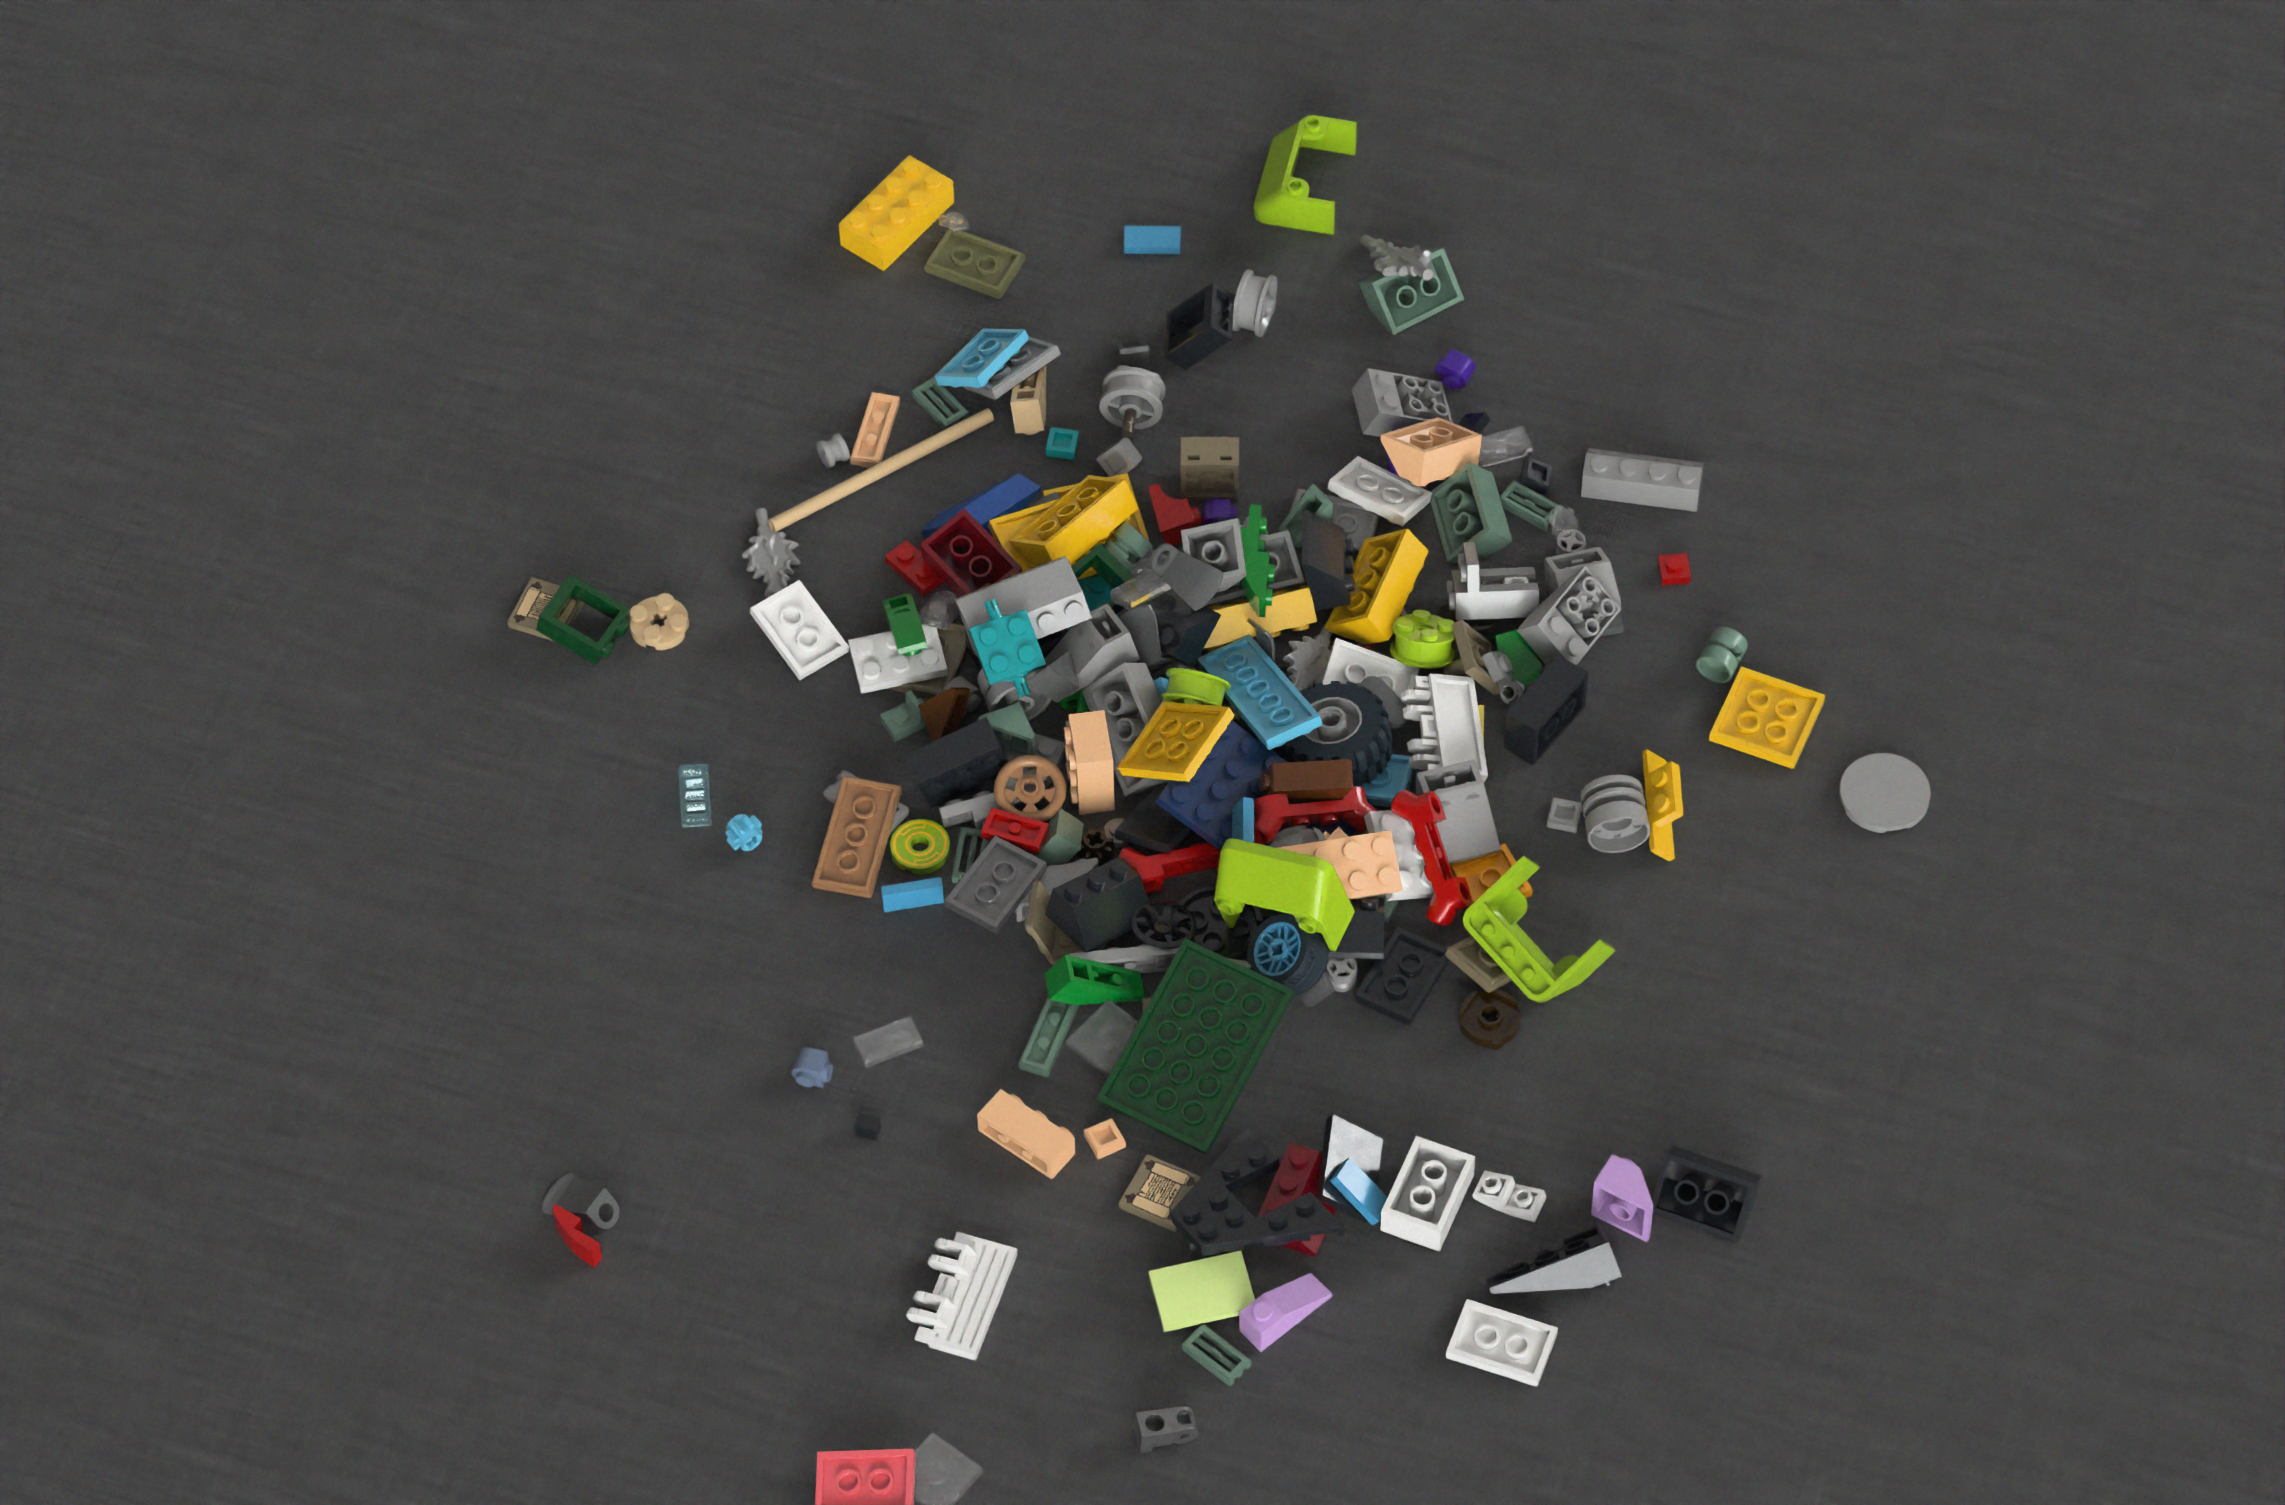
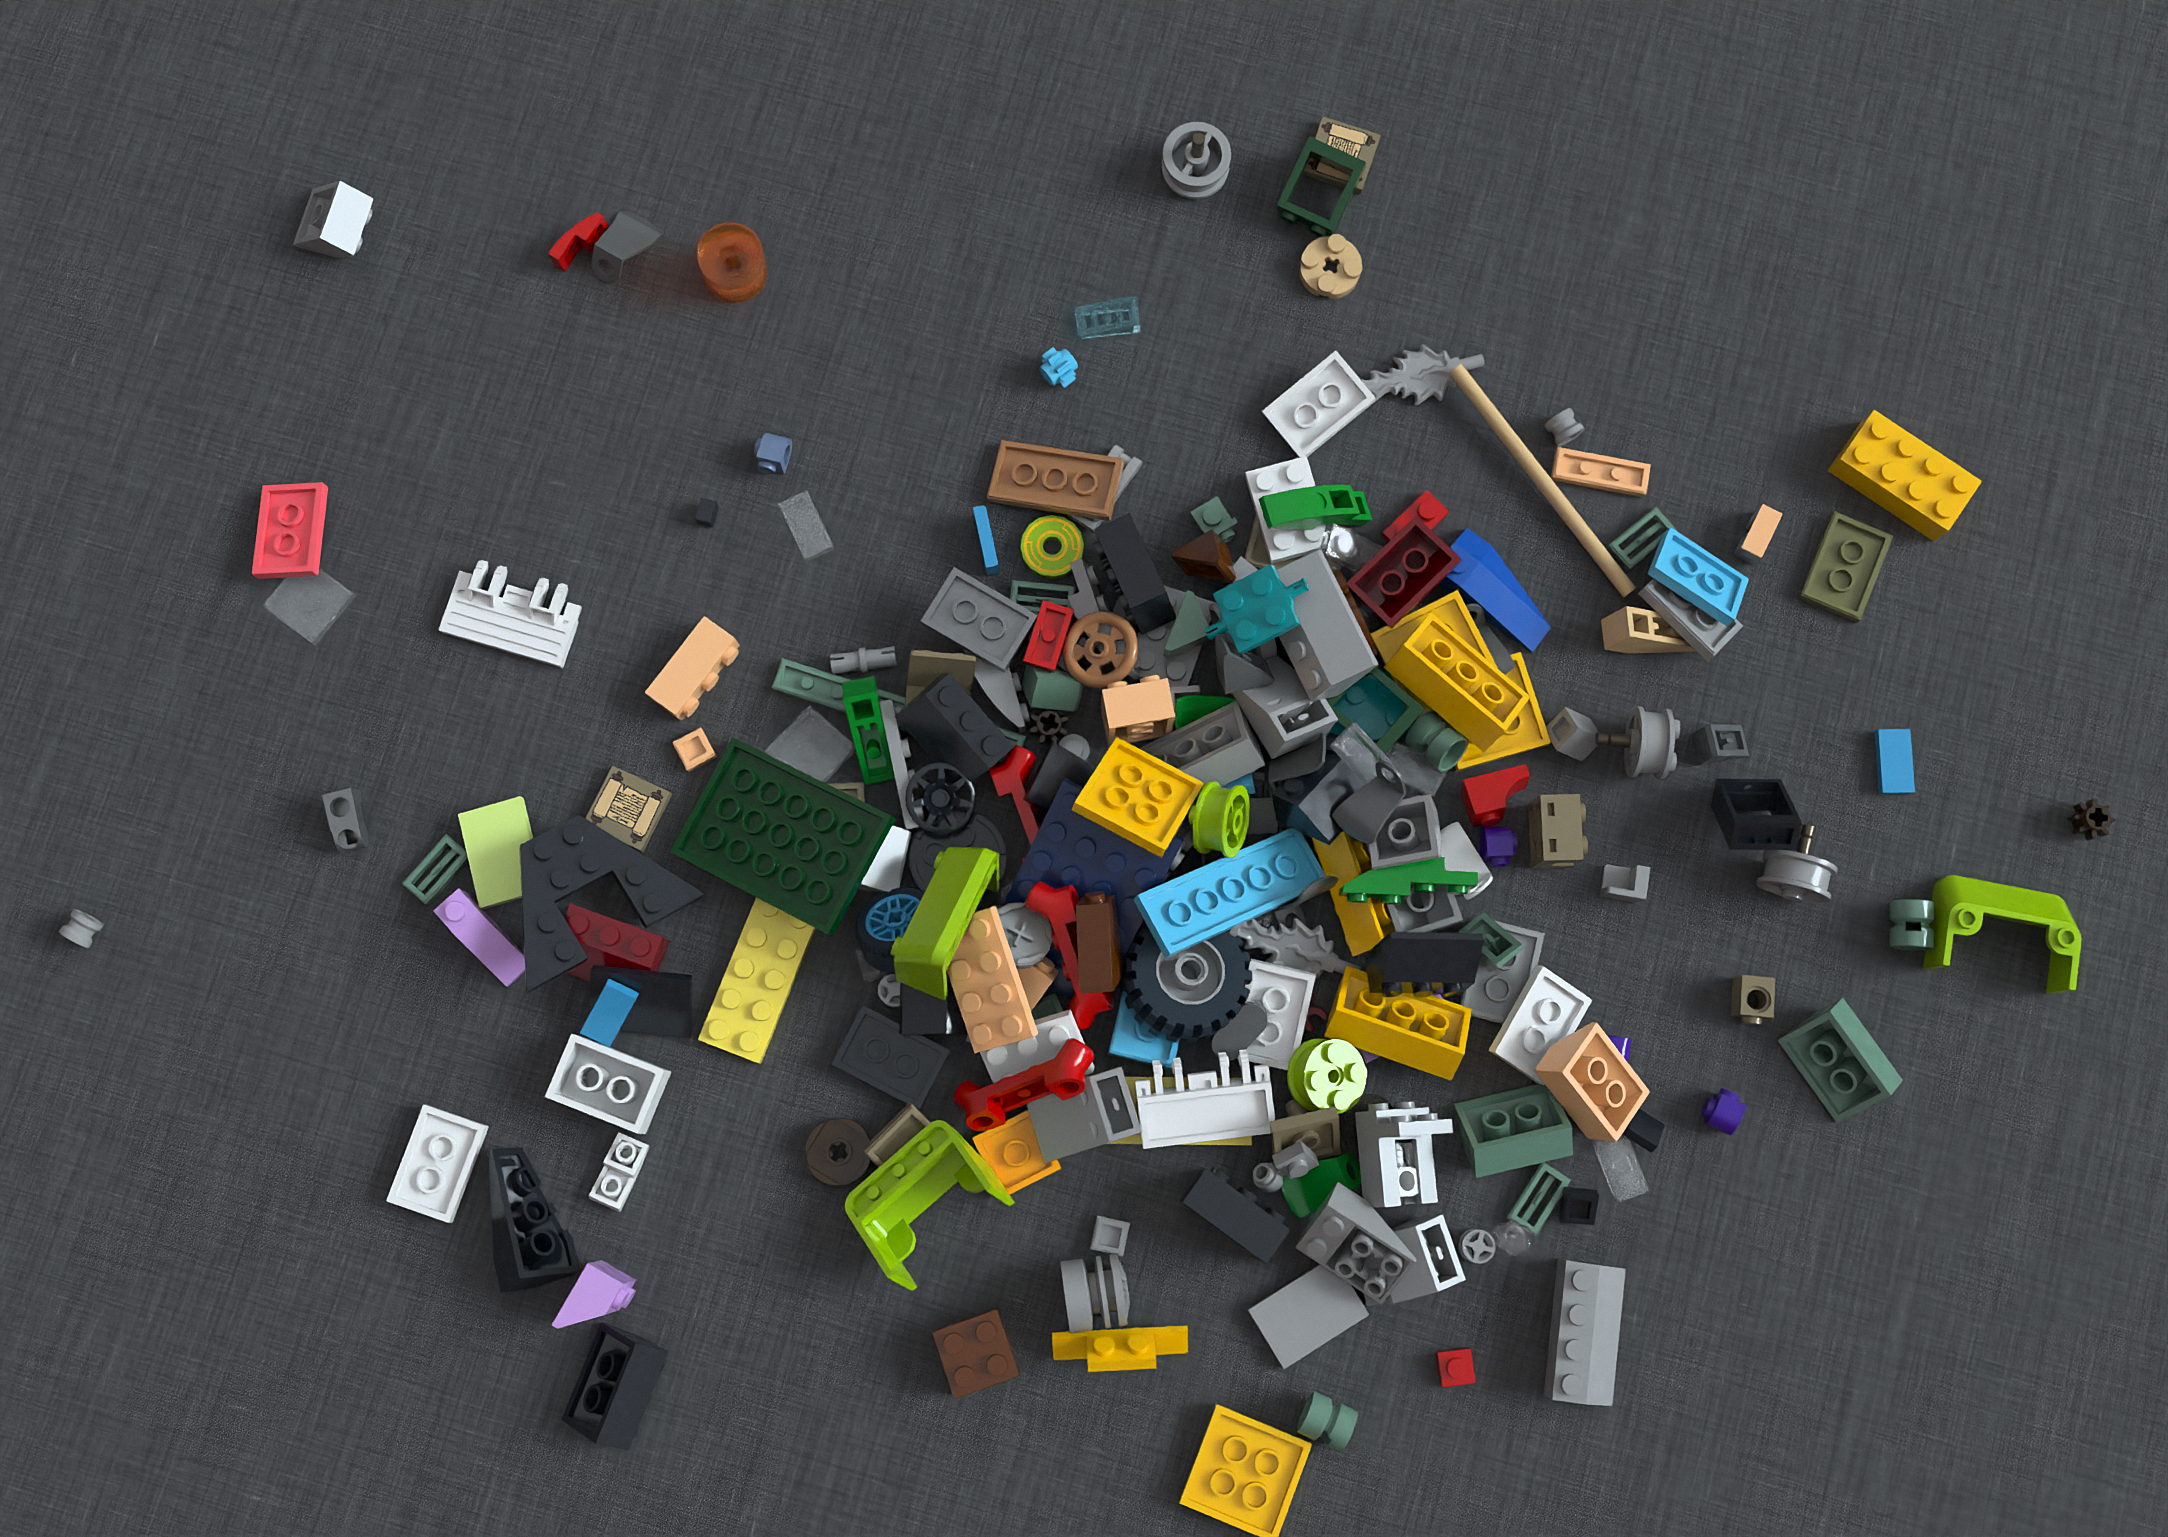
camera: 85 degrees right, 25 degrees up
(530, 1459) = (334, 220): none -> slope
(545, 717) = (1196, 160): none -> light grey wheel
(616, 1092) = (726, 247): none -> clear orange wheel
(936, 311) = (1760, 533): none -> light nougat piece
(954, 221) = (1900, 540): clear plant -> none
(1023, 997) = (863, 660): none -> light grey pin
(1062, 443) = (1591, 671): teal plate -> none
(1208, 110) = (2098, 816): none -> dark brown gear
(1243, 820) = (1031, 875): dark azure tile -> none
(1255, 427) = (1625, 883): none -> light grey panel
(1288, 227) = (1911, 913): none -> sand green wheel
(1328, 1084) = (757, 982): none -> light yellow plate
(1358, 345) = (1764, 990): none -> dark tan brick
(1397, 401) = (1670, 1049): light grey slope -> none
(1398, 261) = (1865, 1043): light grey piece -> none
(1630, 671) = (1307, 1314): none -> light grey tile
(1668, 909) = (976, 1352): none -> reddish brown brick

